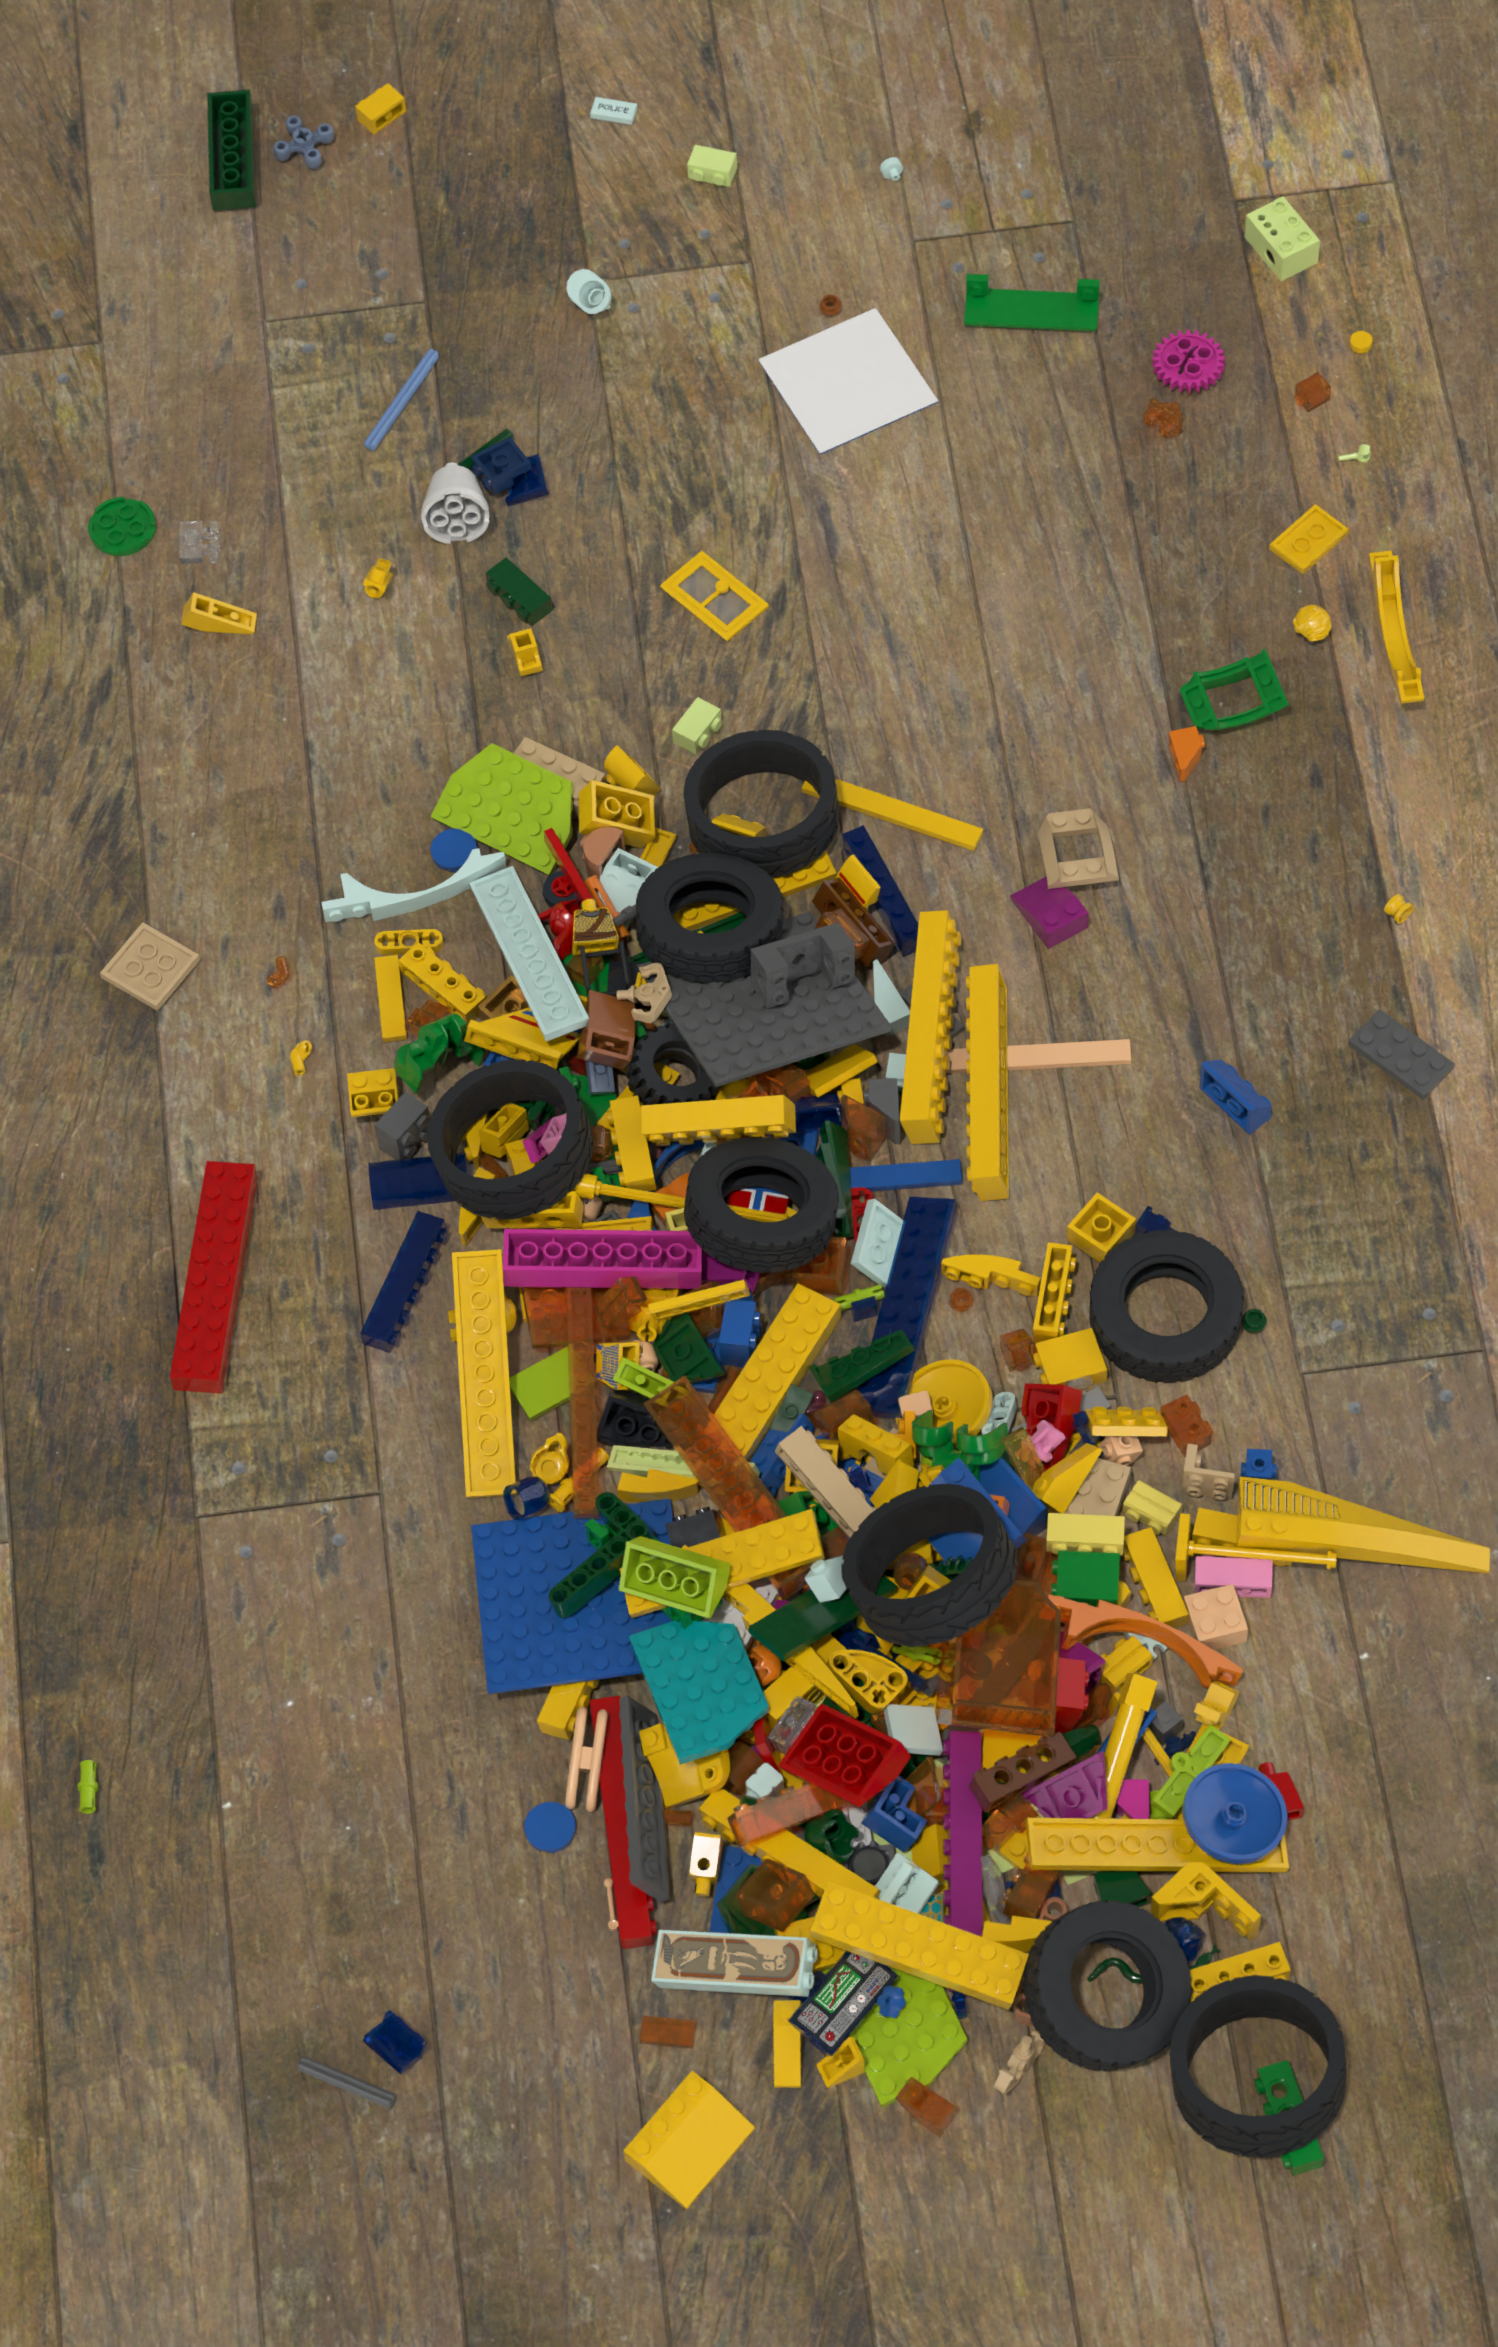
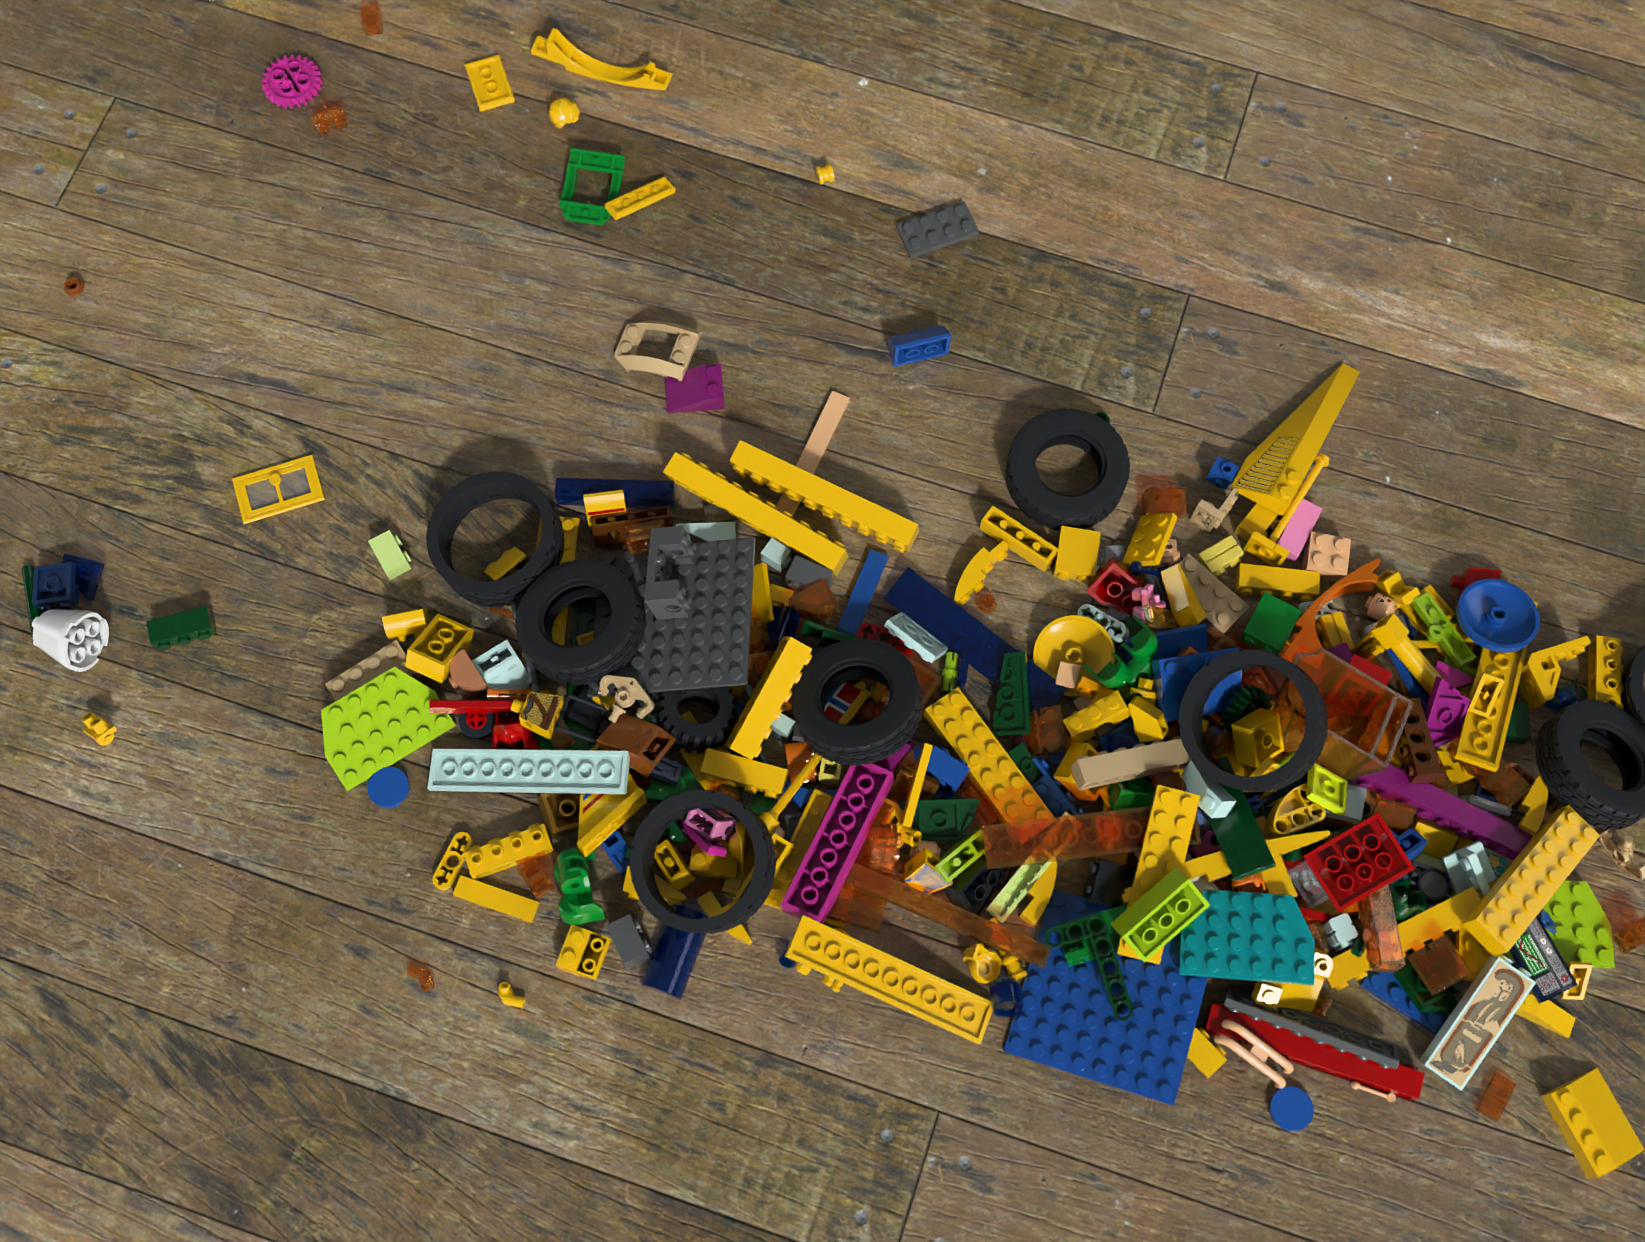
camera: 70 degrees left, 10 degrees up
(150, 966) = (353, 1083): tan plate -> none
(214, 1277) = (680, 1160): red brick -> none
(216, 616) = (47, 875): yellow slope -> none
(363, 900) = (393, 881): light aqua slope -> none
(404, 1282) = (764, 1006): clear blue brick -> none
(525, 652) = (241, 648): yellow brick -> none
(542, 1385) = (908, 936): lime tile -> none
(659, 847) = (482, 636): yellow tile -> none
(705, 1852) = (1375, 1002): torso -> none
(848, 381) = (148, 308): white piece -> none
(904, 814) = (560, 445): yellow tile -> none
(912, 1699) = (1327, 789): none -> neon yellow tile
(1017, 1350) = (1051, 583): clear orange slope -> none
(1031, 308) = (173, 157): green bracket -> none
(1085, 1533) = (1238, 607): light yellow brick -> none
(1100, 1227) = (982, 481): yellow brick -> none
(1117, 1824) = (1485, 694): none -> yellow slope
(1152, 1222) = (995, 448): clear blue brick -> none
(1184, 1697) = (1380, 606): none -> light nougat head
(1185, 750) = (617, 241): orange slope -> none
(1250, 745) = (640, 198): none -> yellow tile
(1362, 455) = (443, 18): yellowish green hand -> none

